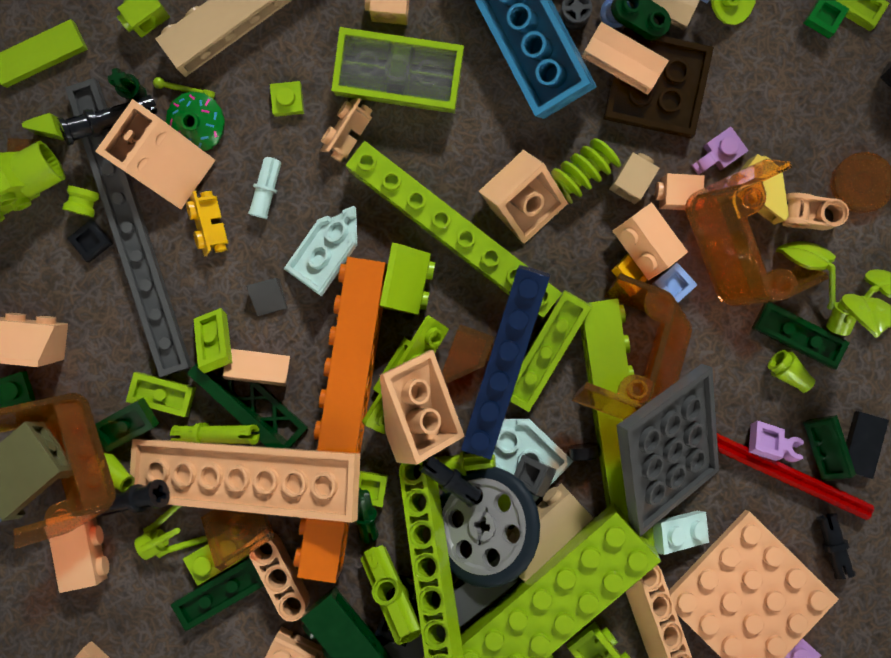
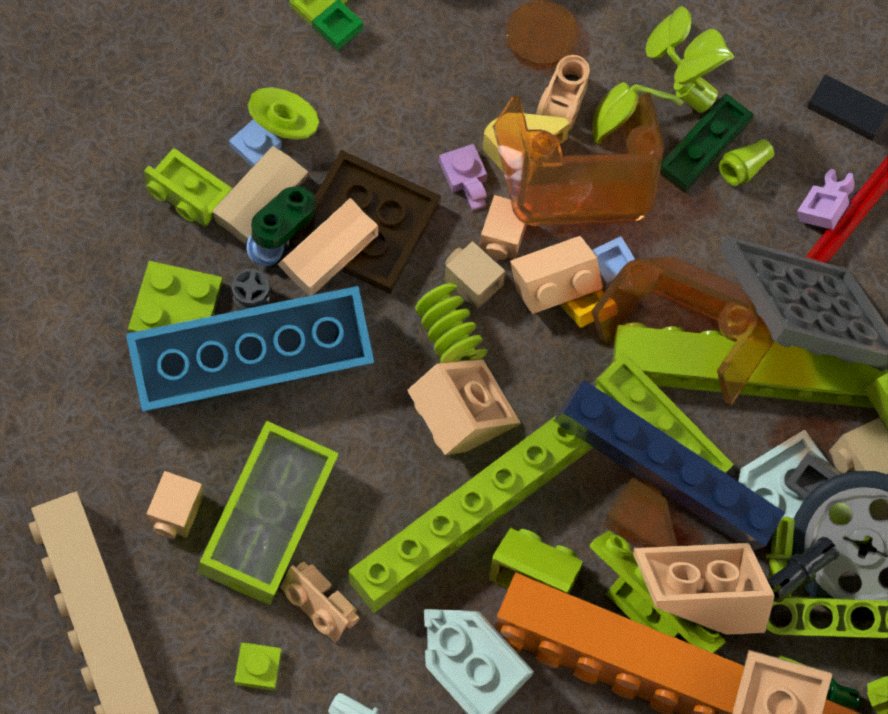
camera: 80 degrees left, 20 degrees down
(584, 451) = (795, 412): black tile -> none
(829, 448) = (845, 143): dark green plate -> none

